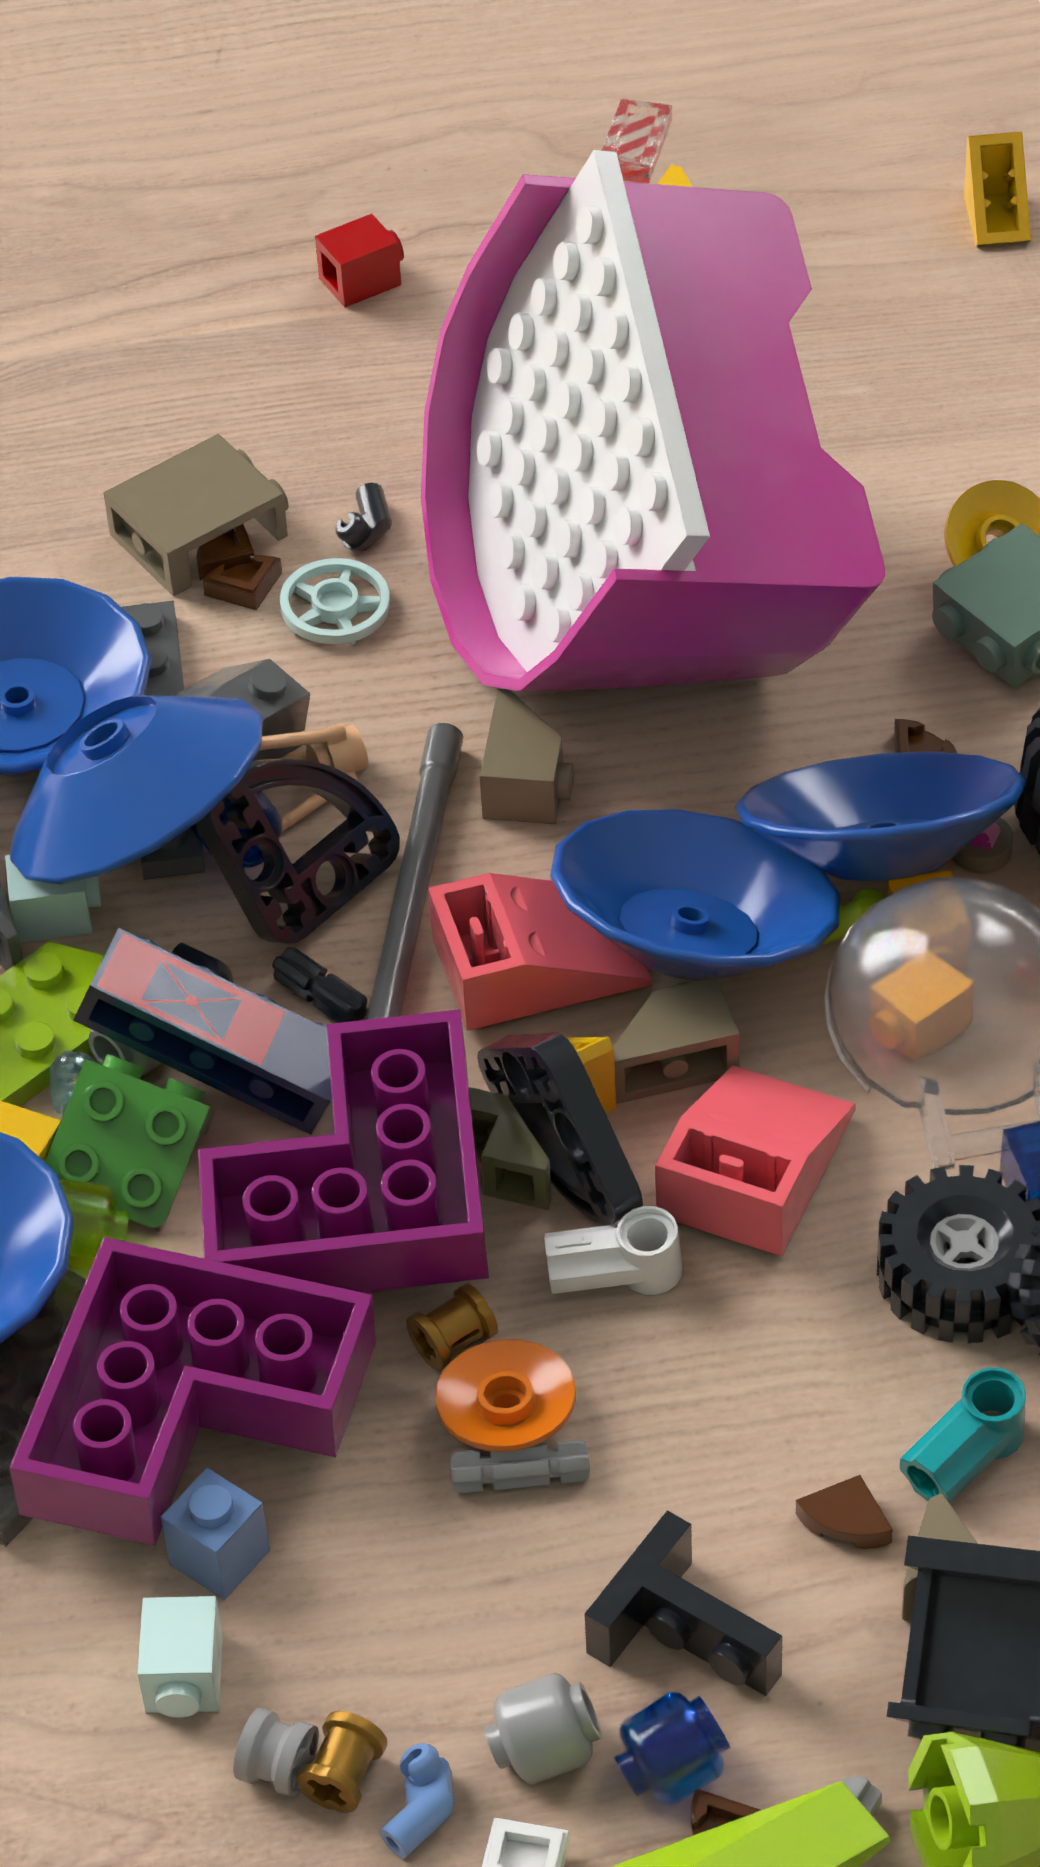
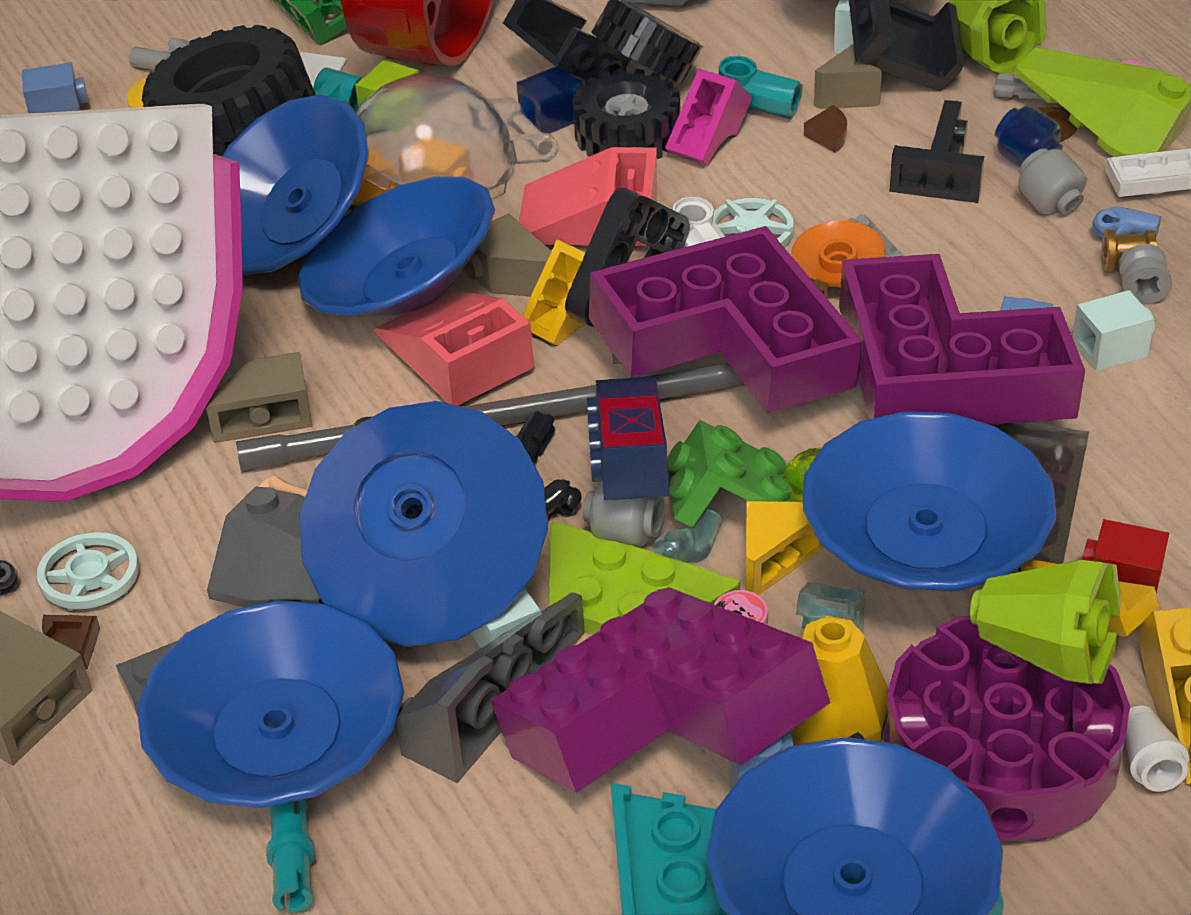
camera: 110 degrees left, 5 degrees down
(650, 1343) = (749, 220): none -> light aqua wheel
(911, 1346) = (708, 116): none -> dark pink arch

